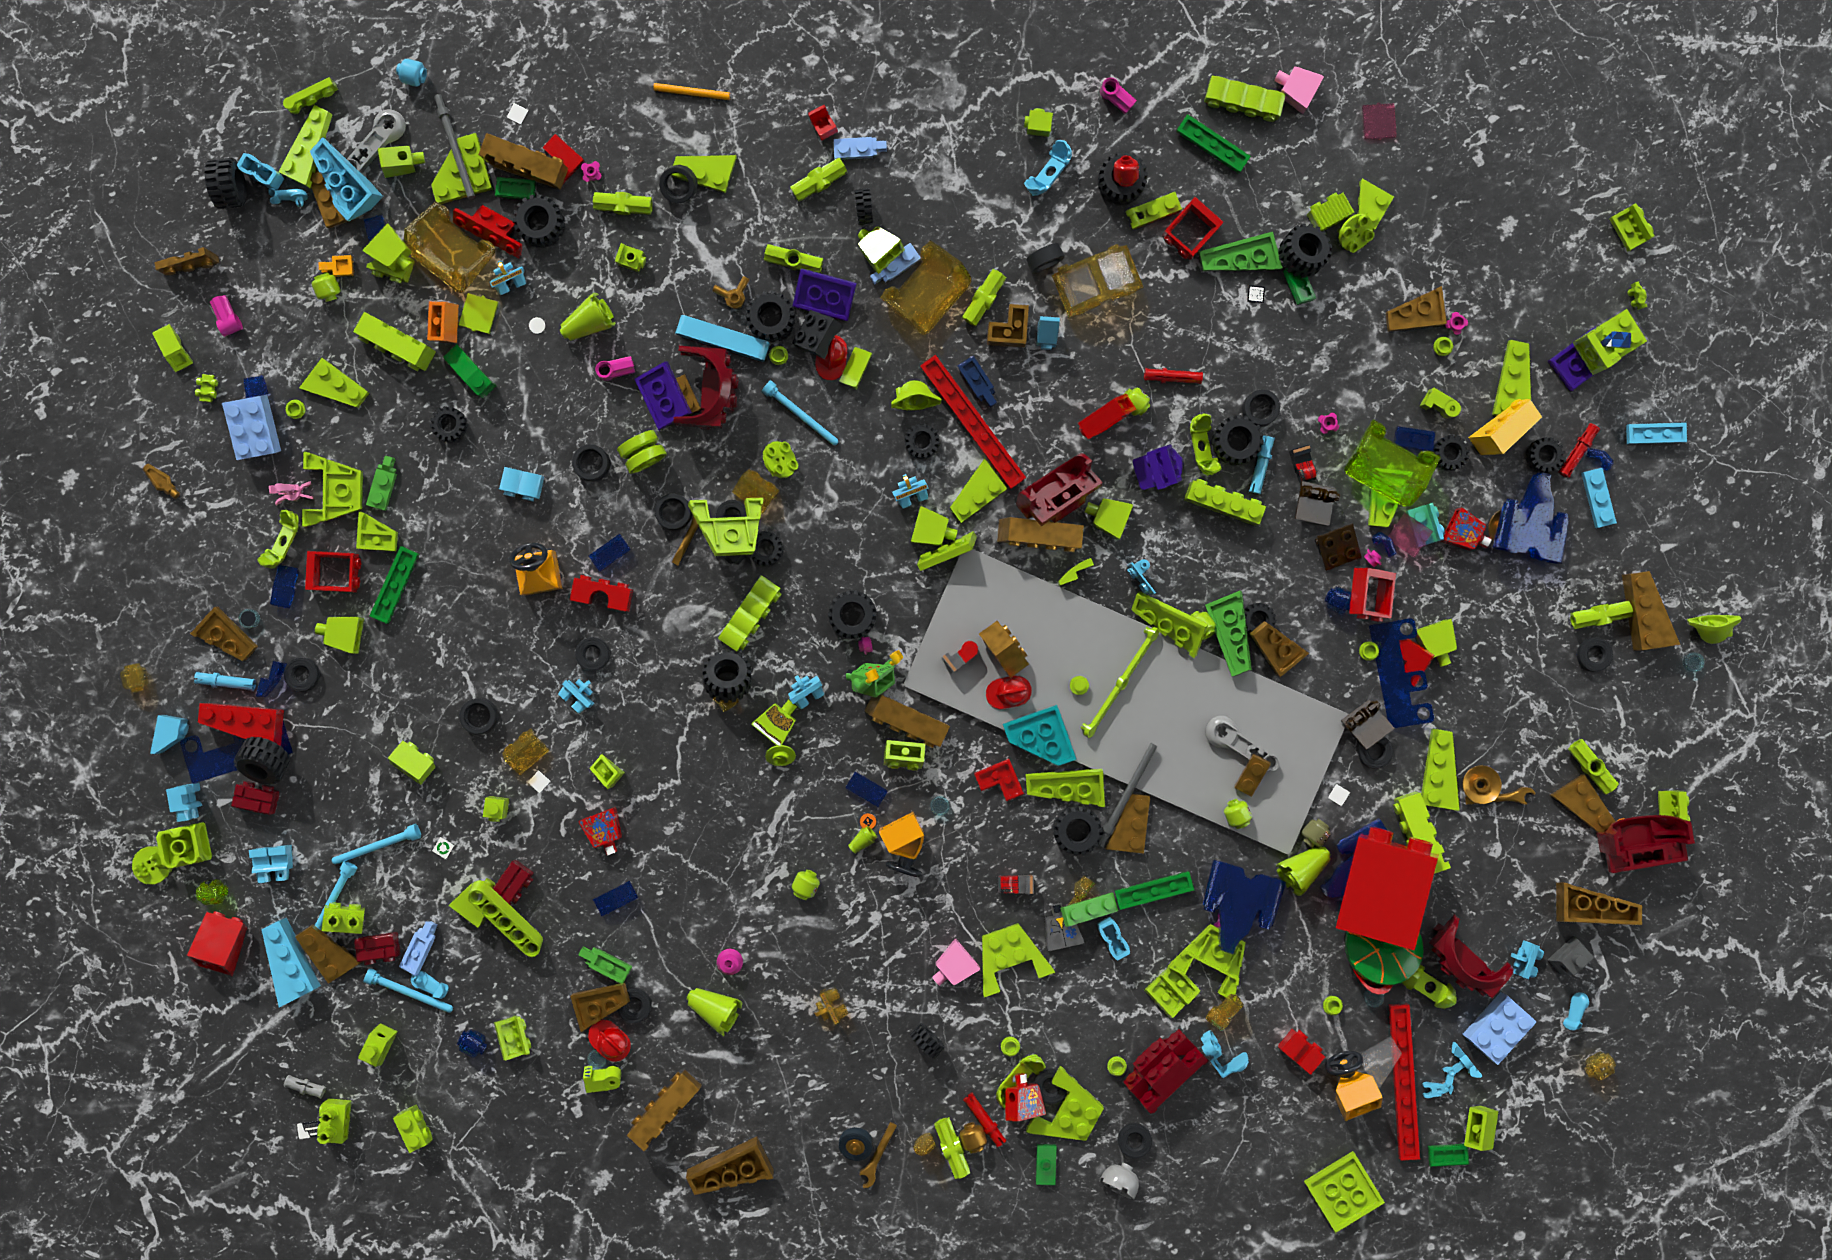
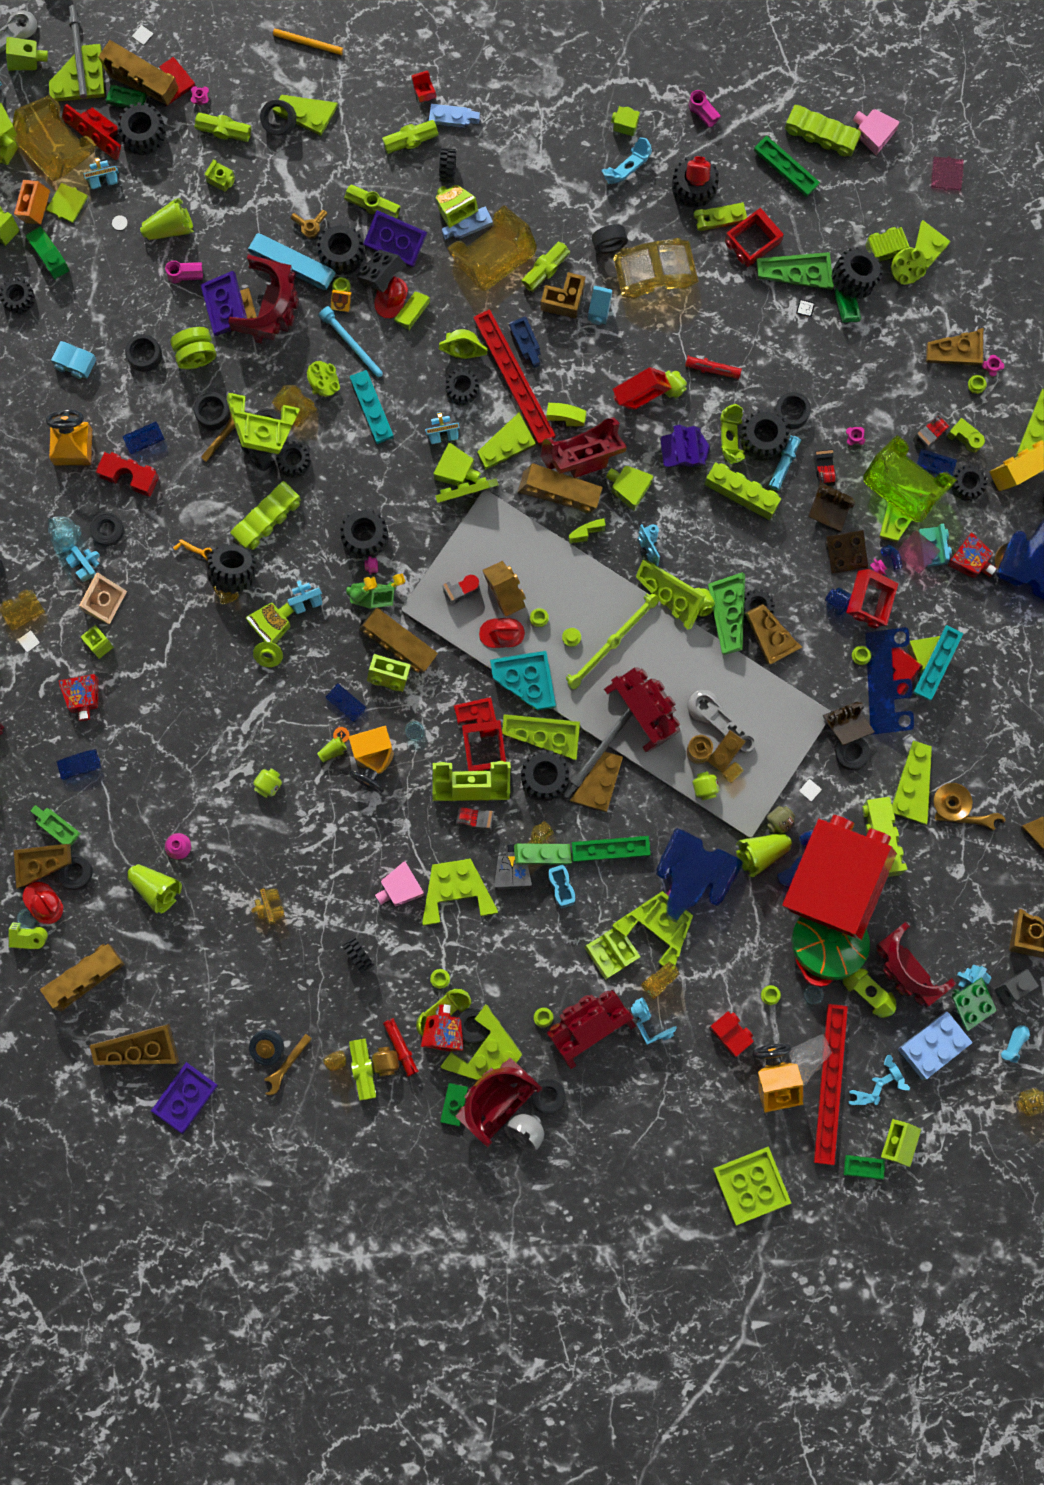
camera: 10 degrees right, 10 degrees down
(551, 669) = (64, 533): none -> clear light blue cylinder
(604, 728) = (102, 599): none -> light nougat slope
(683, 659) = (193, 549): none -> light orange piece
(781, 371) = (340, 300): none -> tile
(786, 1204) = (184, 1098): none -> dark purple tile
(833, 478) = (371, 407): none -> teal plate
(1005, 794) = (496, 724): none -> red window
(1006, 853) = (471, 784): none -> lime bracket
(1030, 451) = (563, 412): none -> lime slope
(1043, 671) = (539, 617): none -> lime plate
(1086, 1157) = (496, 1099): none -> dark red piece
(1167, 744) = (648, 705): none -> dark red piece
(1226, 779) = (699, 749): none -> pearl gold wheel
(1261, 794) = (732, 772): none -> clear yellow hinge
(1404, 407) = (931, 432): none -> leg
(1449, 650) = (938, 663): none -> teal plate
(1531, 982) = (973, 1003): none -> green hinge

